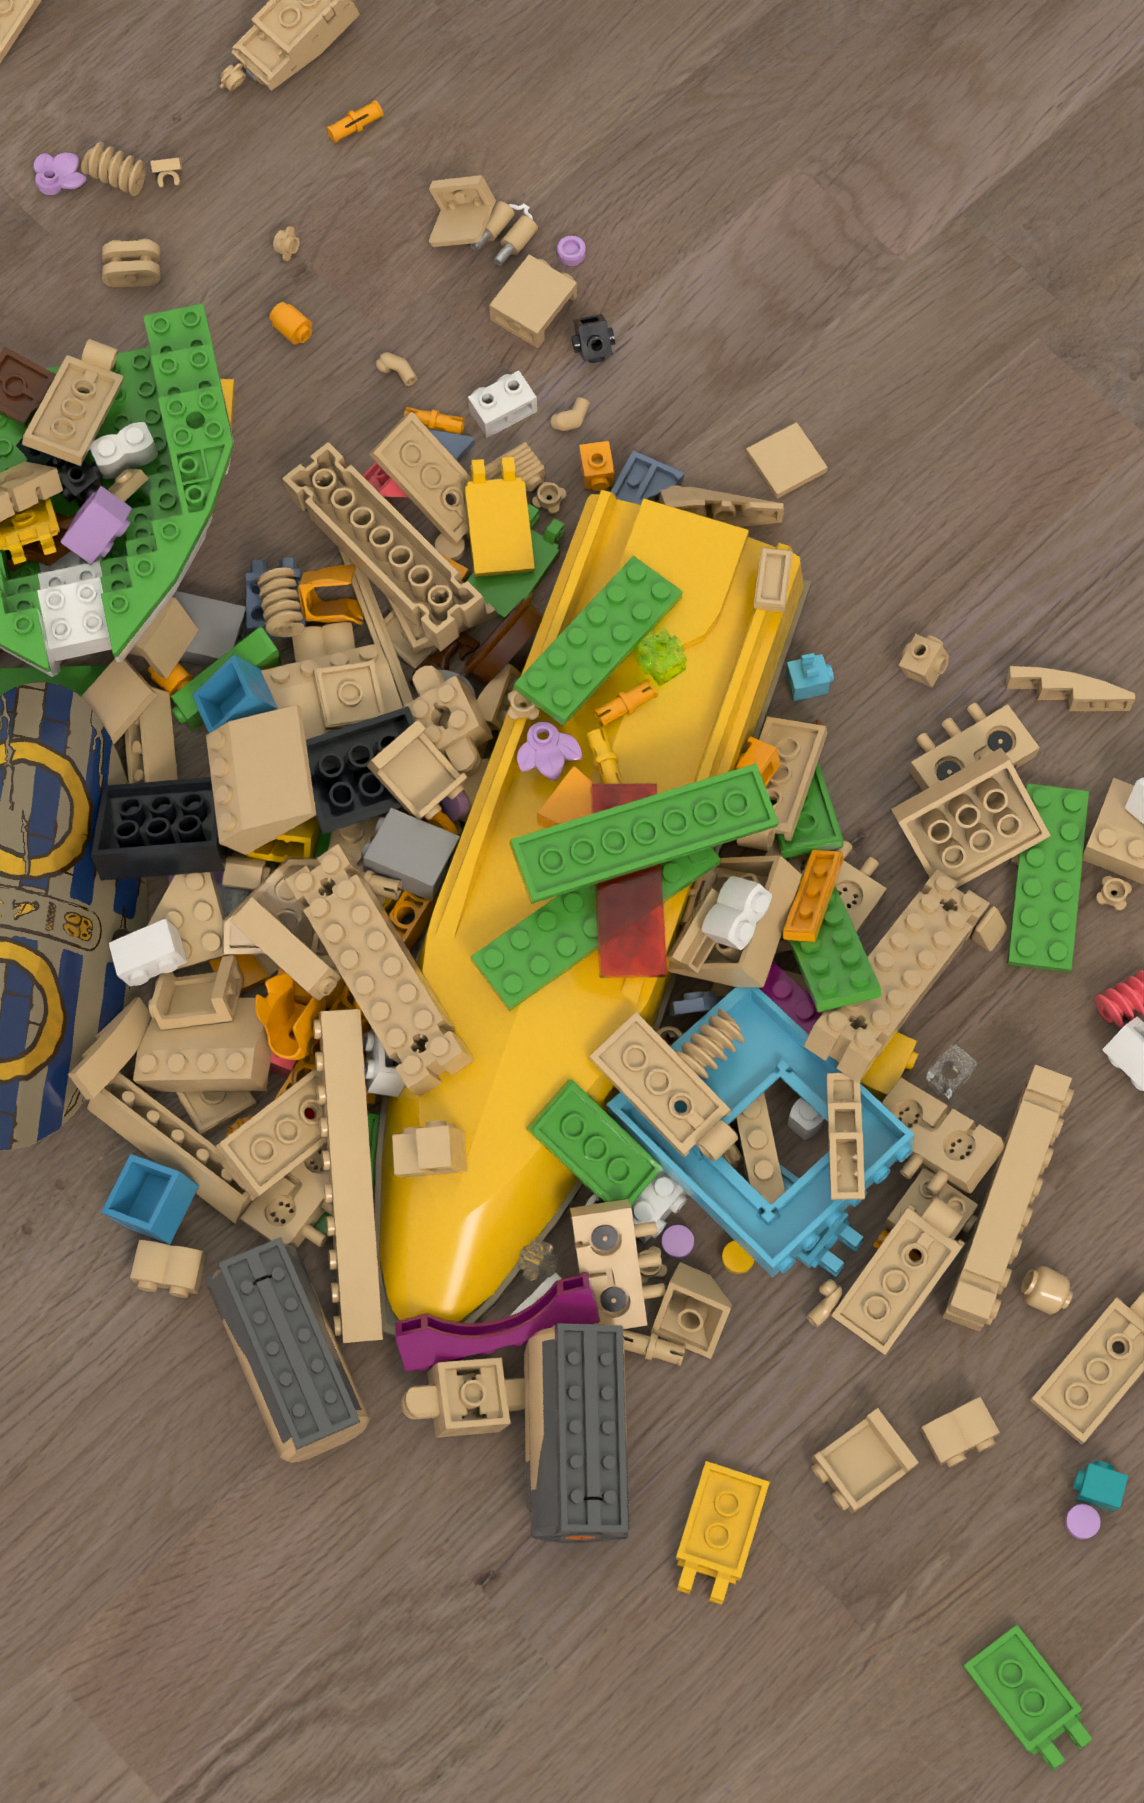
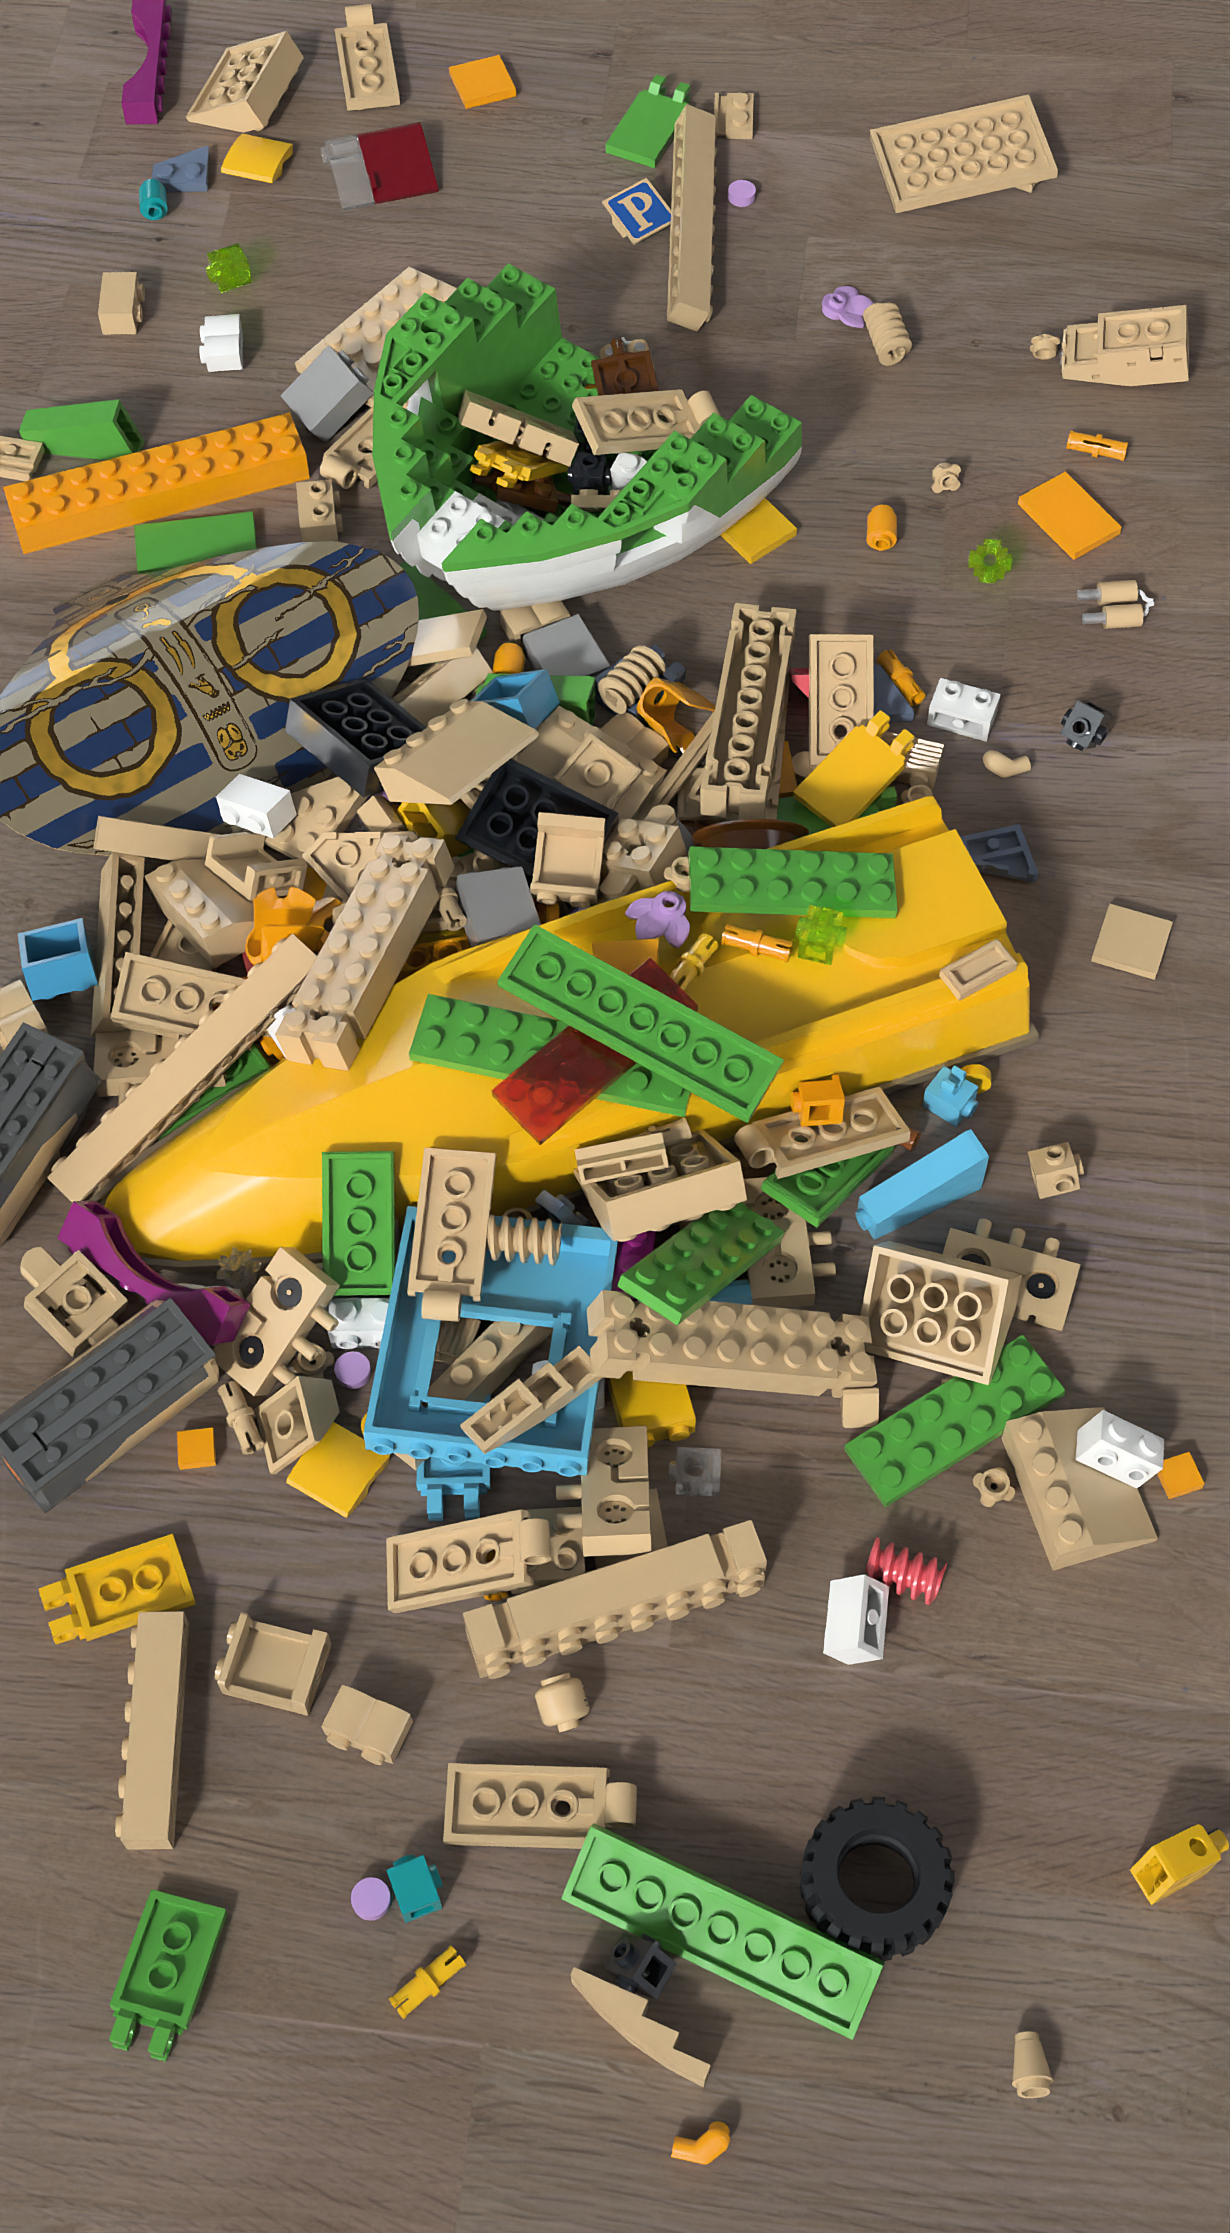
camera: 50 degrees right, 10 degrees down
(97, 525) = (550, 490): lavender brick -> none
(131, 263) = (821, 398): tan brick -> none
(167, 167) = (925, 362): tan tile -> none
(167, 638) = (524, 626): tan tile -> none
(286, 949) = (328, 873): tan slope -> none
(390, 361) = (925, 622): tan arm -> none
(393, 278) = (990, 573): none -> clear neon green brick
(395, 192) = (1069, 515): none -> light orange tile
(429, 1150) = (241, 1094): tan brick -> none
(464, 210) = (1106, 558): tan bracket -> none
(532, 300) = (1075, 661): tan panel -> none
(571, 250) = (1150, 661): lavender tile -> none
(596, 465) = (979, 809): light orange brick -> none
(649, 1396) = (196, 1448): none -> light orange tile
(723, 507) = (1030, 920): tan wedge -> none
(736, 912) = (646, 1164): white brick -> none
(756, 1310) = (338, 1470): none -> yellow slope
(807, 646) = (979, 1076): none -> yellow tile
(813, 896) = (738, 1225): light orange tile -> none
(826, 1305) = (406, 1524): tan arm -> none
(848, 1579) = (154, 1731): none -> tan brick
(866, 752) = (924, 1186): none -> medium azure slope
(1081, 691) = (1153, 1315): tan slope -> none

